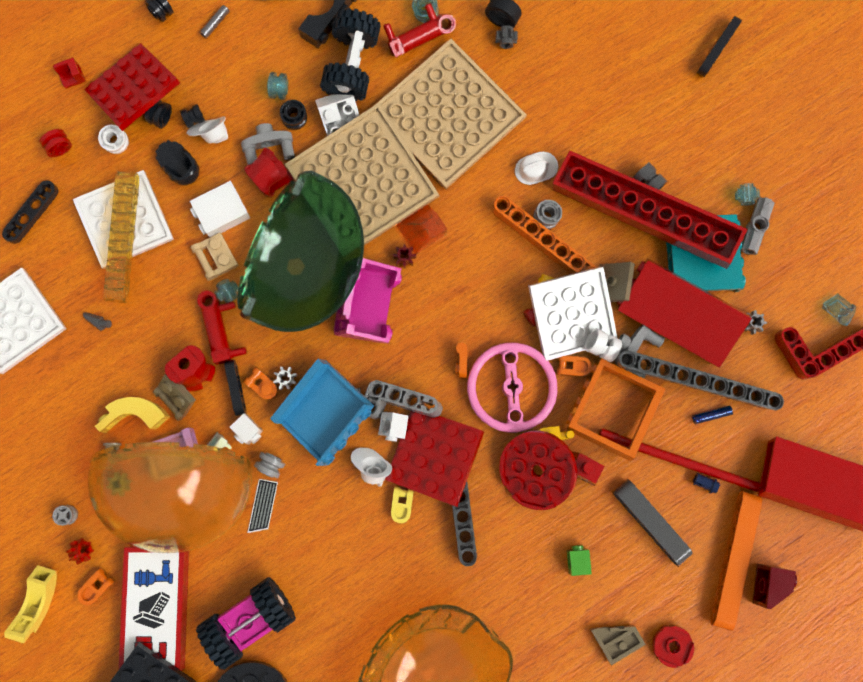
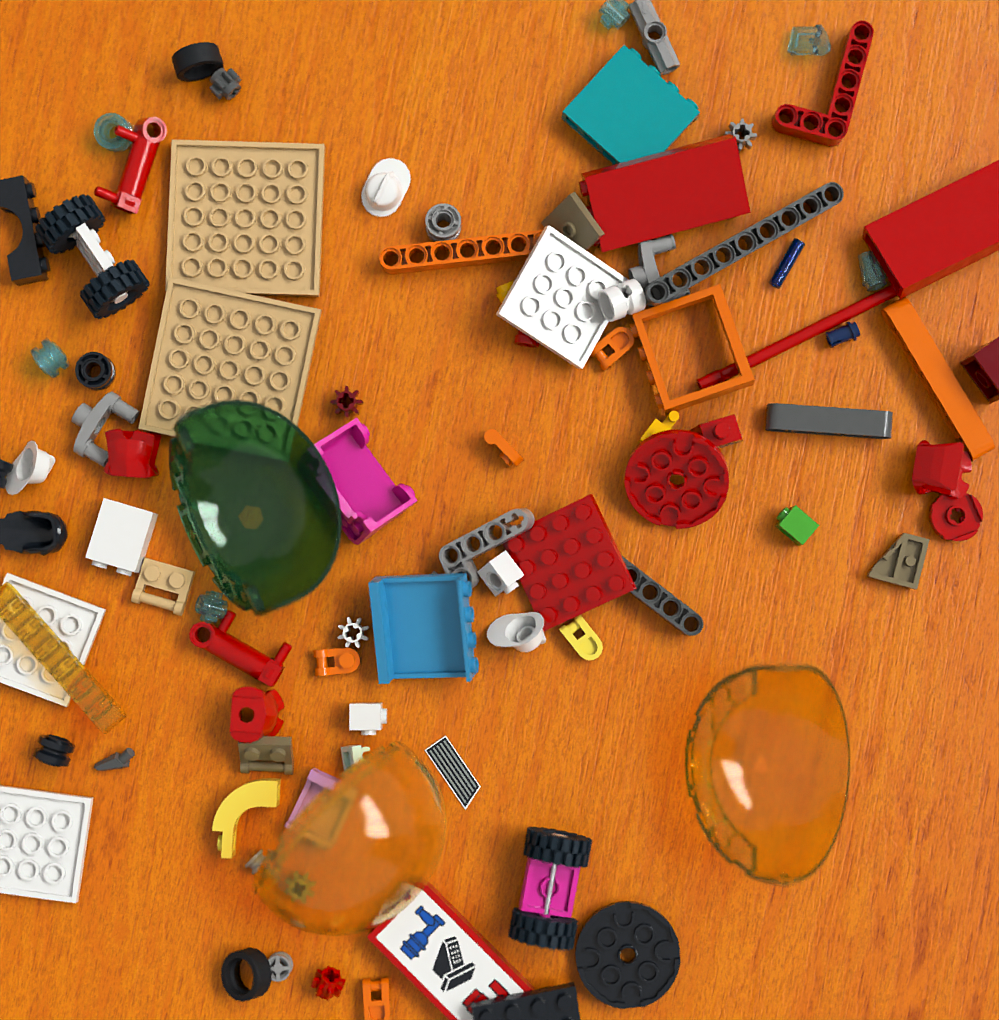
camera: 40 degrees left, 5 degrees up
(34, 496) = (231, 977): none -> black tyre
(71, 283) = (54, 750): none -> black wheel
(235, 387) = (315, 689): black beam -> none
(269, 465) = (422, 726): light grey wheel -> none
(336, 111) = (135, 326): white slope -> none
(422, 228) = (336, 358): clear orange slope -> none
(513, 349) = (540, 388): bright pink piece -> none
(648, 176) = (507, 92): dark grey wheel -> none
(649, 209) = (535, 125): red brick -> none
(690, 612) = (941, 468): none -> red piece
(754, 467) = (871, 272): none -> clear light blue cone

